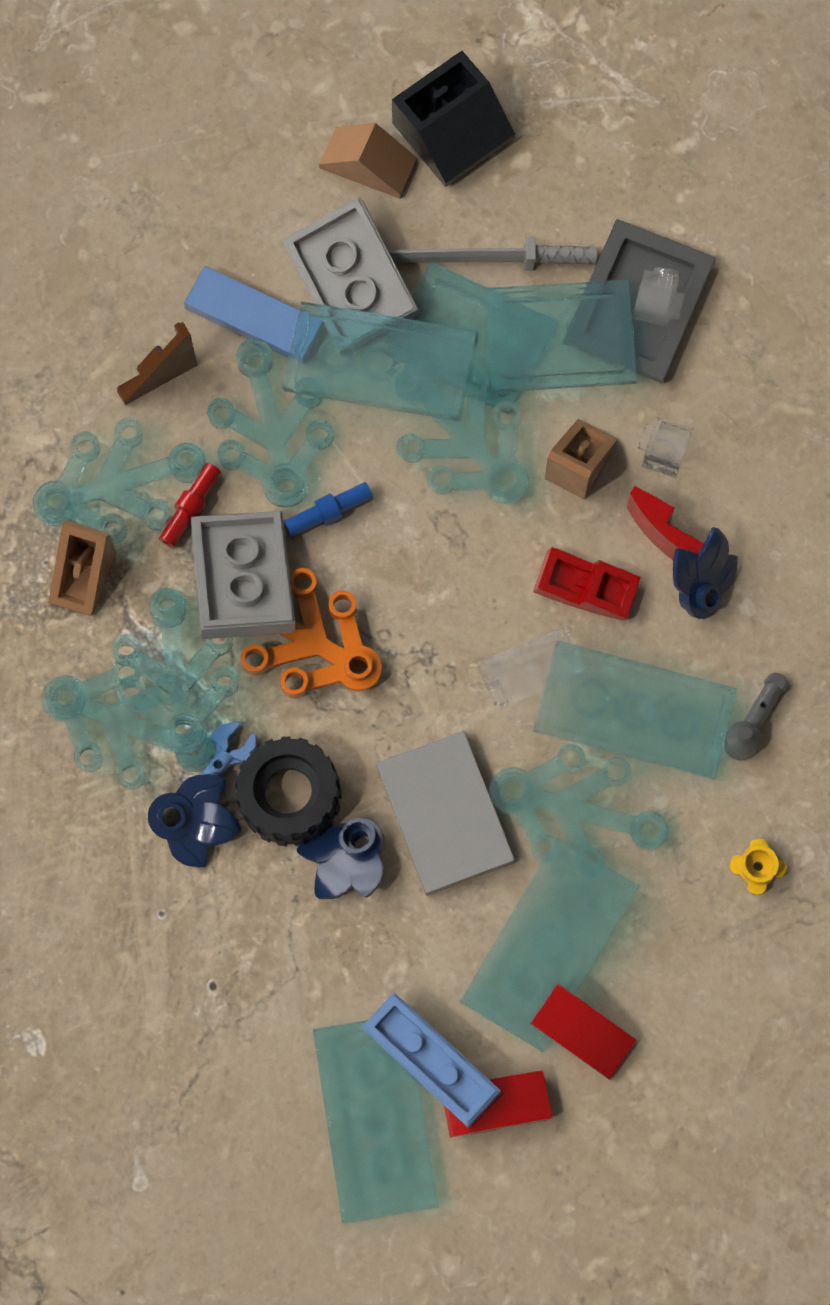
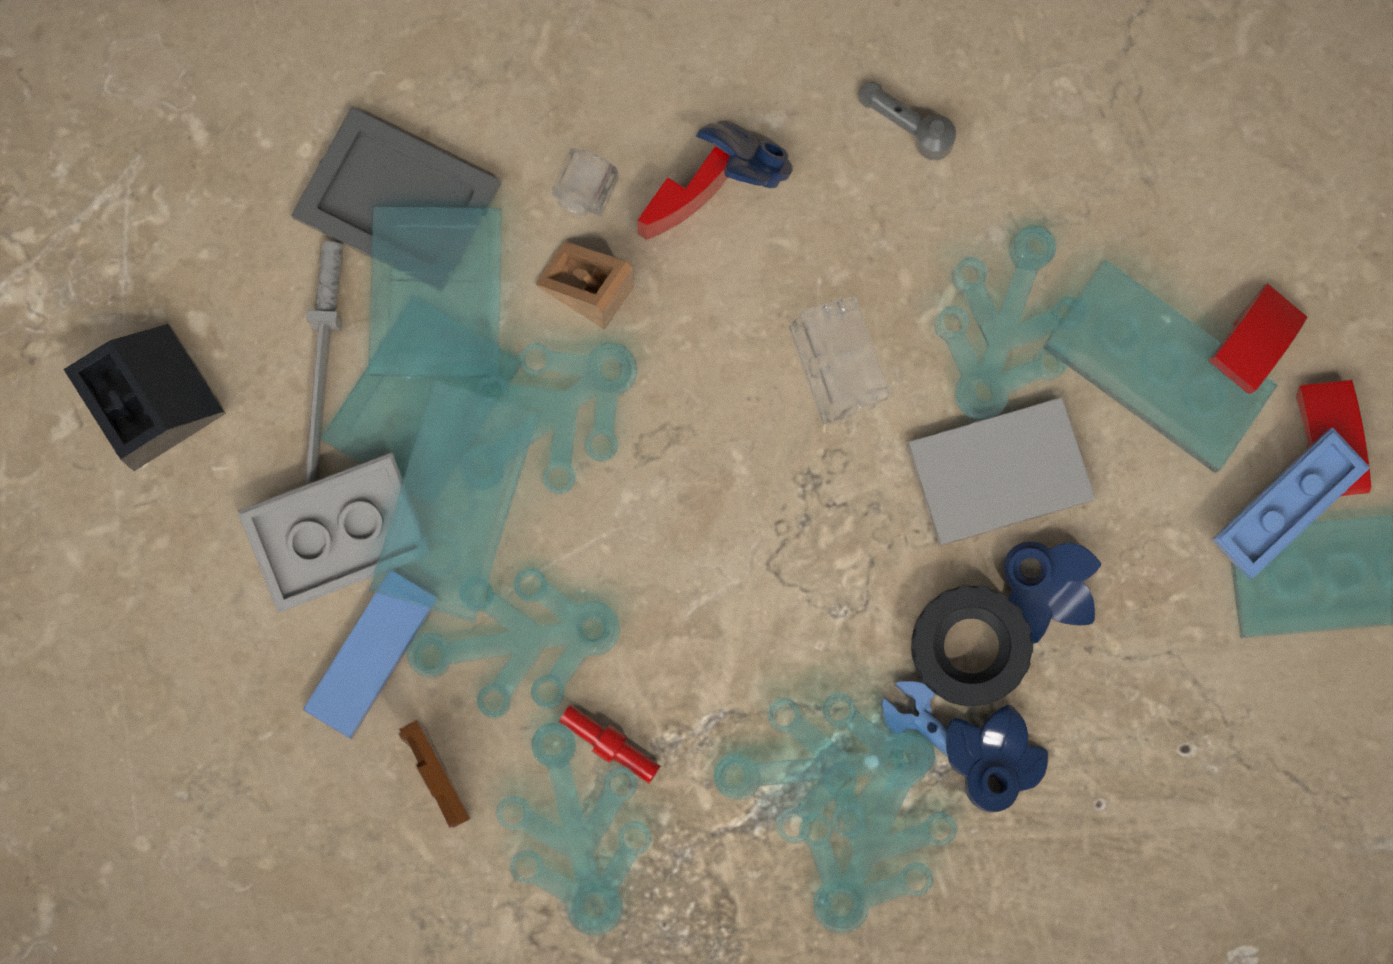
camera: 90 degrees left, 5 degrees up
(81, 567) = (687, 879): medium nougat slope -> none
(242, 575) = (708, 683): light grey tile -> none
(311, 641) = (786, 612): orange plant -> none
(328, 509) = (627, 580): blue bar -> none
(369, 158) = (178, 503): medium nougat slope -> none
(586, 585) = (740, 290): red slope -> none
(635, 710) = (900, 247): clear light blue tile -> none
(659, 297) = (402, 173): clear plate -> none
(758, 853) = (1088, 123): yellow plate -> none

